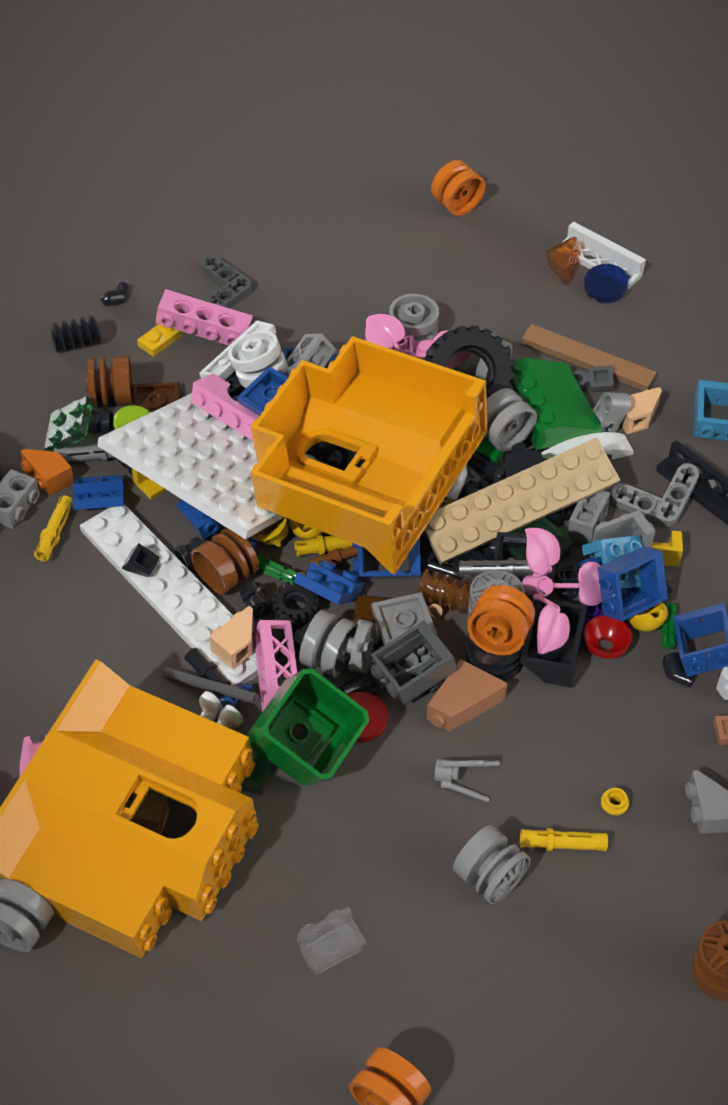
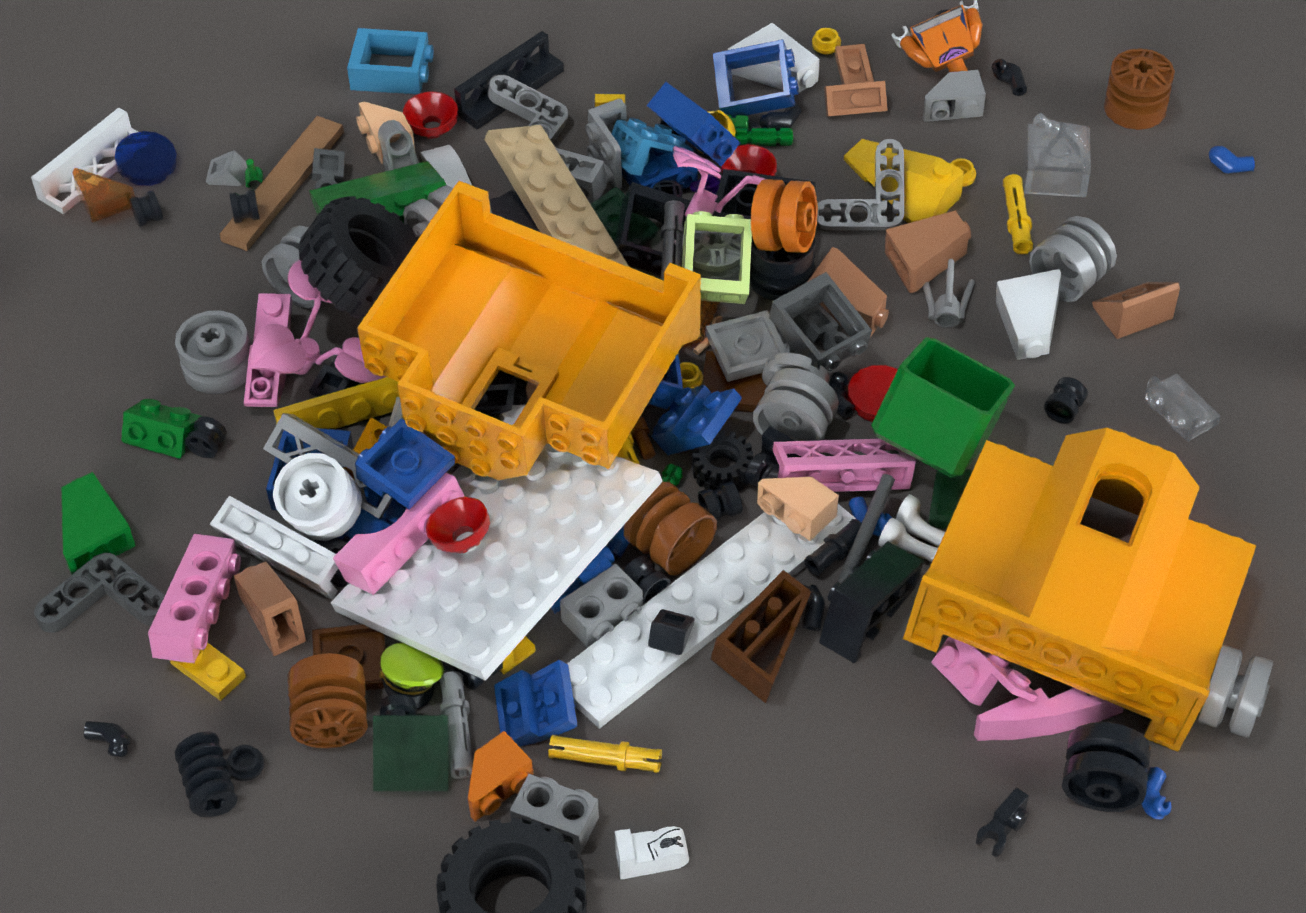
camera: 90 degrees left, 0 degrees up
(83, 352) = (245, 763): none -> black plate
(126, 614) = (761, 635): none -> reddish brown wedge
(147, 673) = (866, 597): none -> black wedge
(164, 653) = (814, 609): none -> black arm
(170, 525) = (598, 601): none -> light grey brick
(190, 354) = (271, 607): none -> nougat slope
(222, 429) = (454, 519): none -> red piece
(275, 274) = (91, 523): none -> green slope
(338, 846) = (1064, 402): none -> black wheel
(341, 324) = (205, 437): none -> black wheel
(356, 303) = (158, 427): none -> green bracket
(383, 583) = (691, 375): none -> yellow plate
(434, 829) = (1029, 311): none -> white slope
(444, 572) = (716, 289): none -> yellowish green window
(449, 920) = (1138, 307): none -> nougat slope
(515, 760) = (924, 247): none -> nougat slope
(549, 329) = (244, 206): none -> black wheel
(553, 284) = (146, 208): none -> black wheel
(570, 728) = (873, 207): none -> light grey beam
(590, 340) = (252, 173): none -> green hand
(599, 329) = (227, 170): none -> light grey slope
(601, 759) = (929, 181): none -> yellow wedge
(629, 876) = (1056, 158): none -> clear piece
(640, 1040) = (1228, 162): none -> blue arm
(653, 656) = (764, 136): none -> green axle
(657, 428) = (431, 107): none -> red piece
(702, 725) = (855, 98): none -> nougat plate

